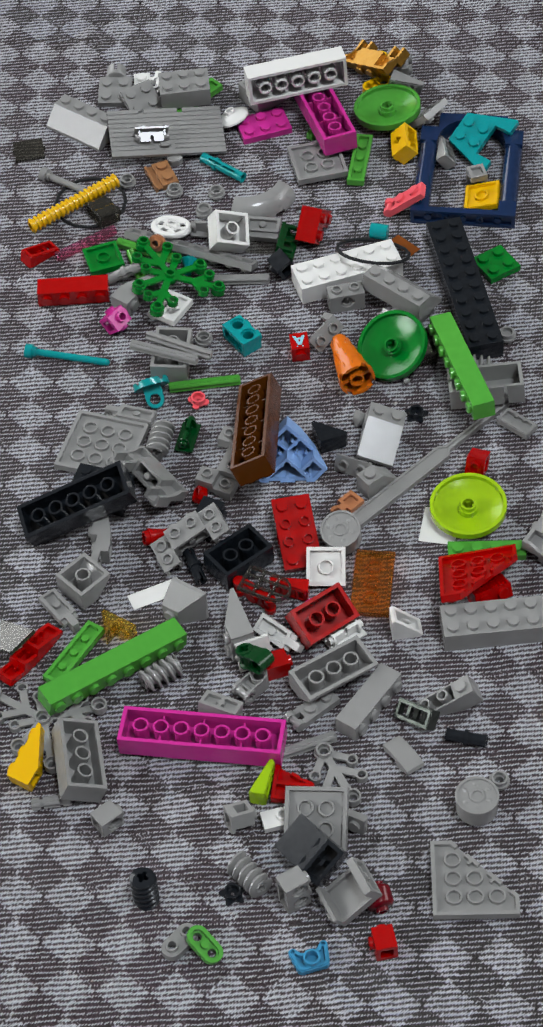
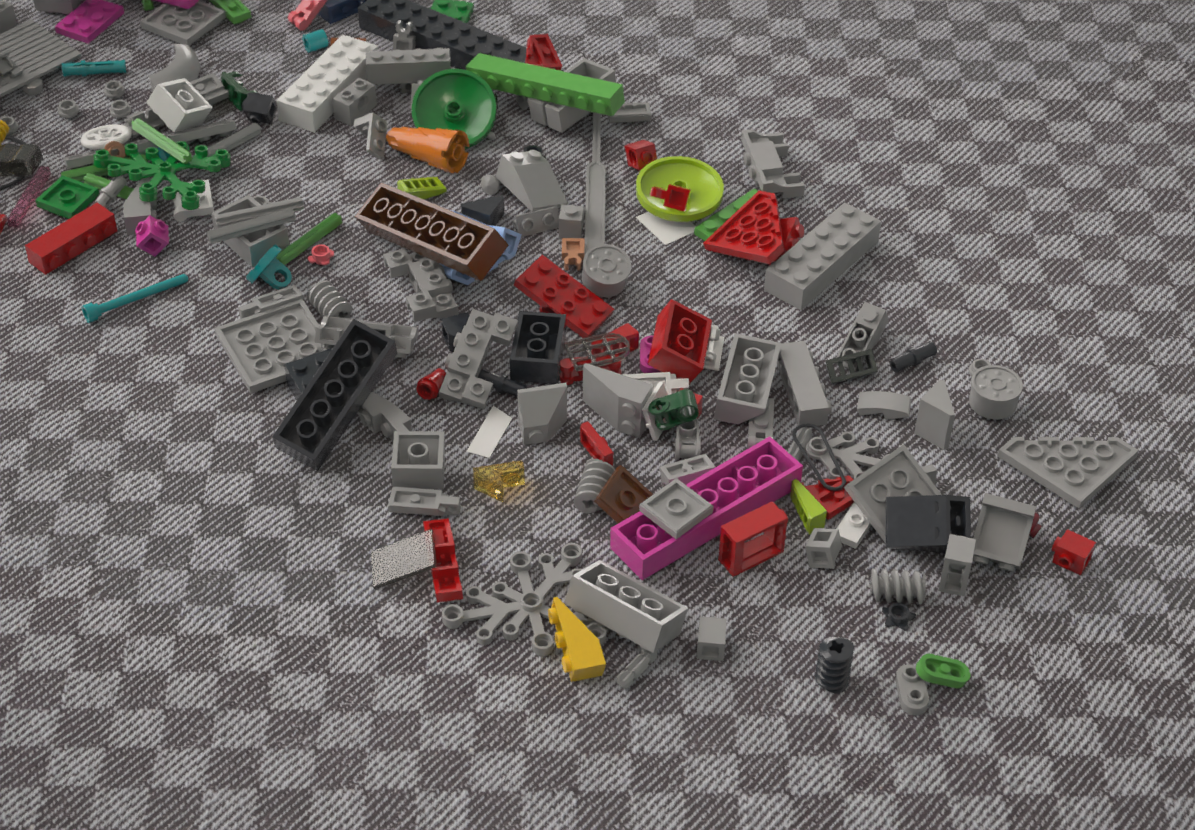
camera: 50 degrees left, 5 degrees down
(75, 651) = (487, 529): bright green plate -> none
(112, 666) = (545, 512): bright green brick -> none
(160, 175) = (36, 105): medium nougat plate -> none
(165, 692) = (622, 495): none -> reddish brown plate
(168, 722) = (676, 508): none -> light grey plate
(187, 435) = (349, 287): dark green hinge -> none
(189, 252) = (161, 141): none -> bright green axle
(195, 649) = (595, 444): none -> red plate
(198, 494) = (429, 324): red tile -> none
(199, 777) = (741, 556): none -> red window
(233, 116) = (55, 22): white dish -> none
(242, 335) = (295, 182): teal brick -> none
(299, 346) = (363, 161): red brick -> none
(302, 392) = (422, 187): none -> lime slope
(311, 224) = (250, 62): red brick -> none
(311, 960) = (1035, 616): dark azure piece -> none
(320, 762) = (810, 462): none -> black piece
(326, 566) = (625, 303): white plate -> none
(371, 262) = (297, 61): black piece -> none
(373, 582) = (662, 284): clear orange tile -> none
(404, 624) = (745, 311): white slope -> none
(417, 785) = (936, 416): none -> light grey slope
(430, 269) = (403, 40): none -> light grey plate
(446, 509) = (675, 196): none -> red plate
(493, 339) = (542, 52): none -> red wing

